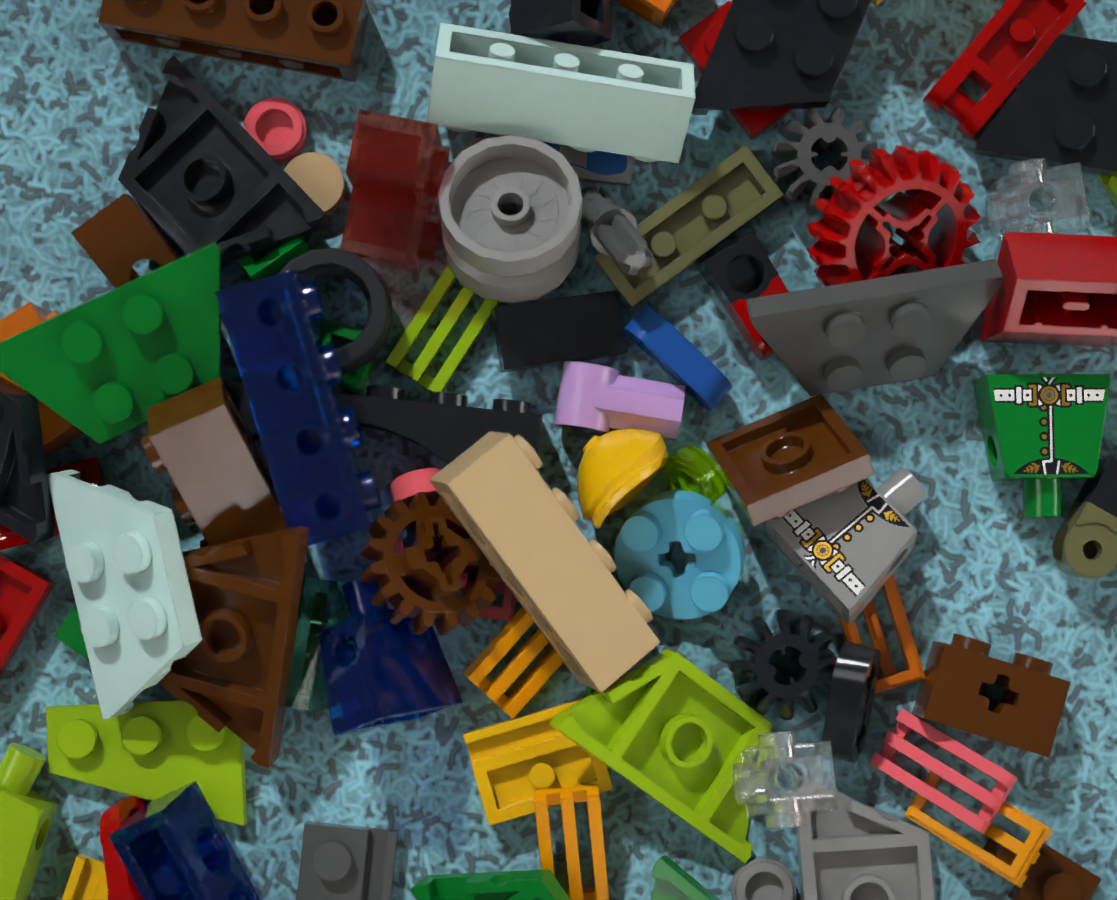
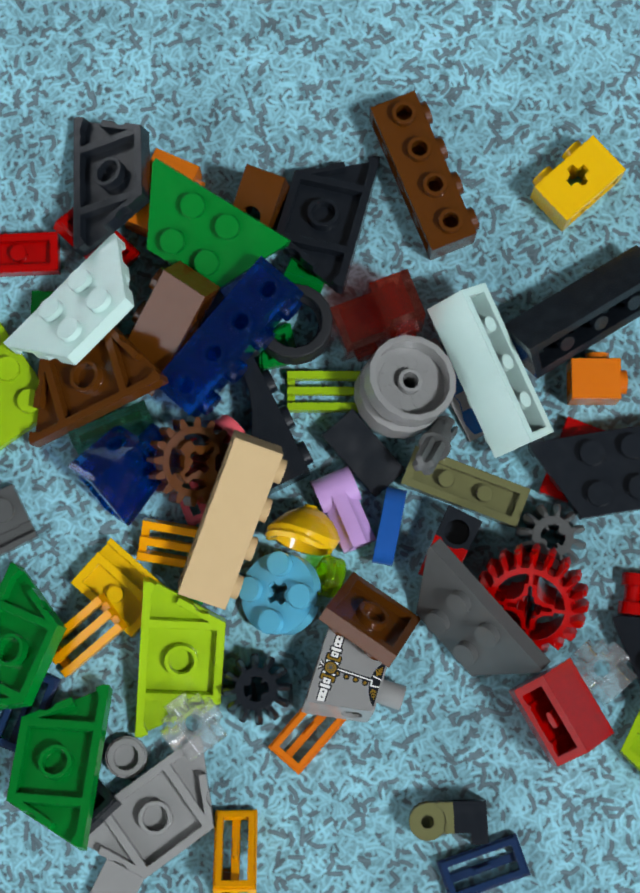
camera: 65 degrees right, 5 degrees down
(277, 128) = (377, 235): coral tile -> none
(319, 179) = (362, 272): tan tile -> none
(851, 700) = (258, 738): black beam -> none
(896, 742) = (252, 781): coral tile -> none
(1028, 707) = (306, 842): reddish brown brick -> none
(1042, 432) = (476, 754): green torso -> none

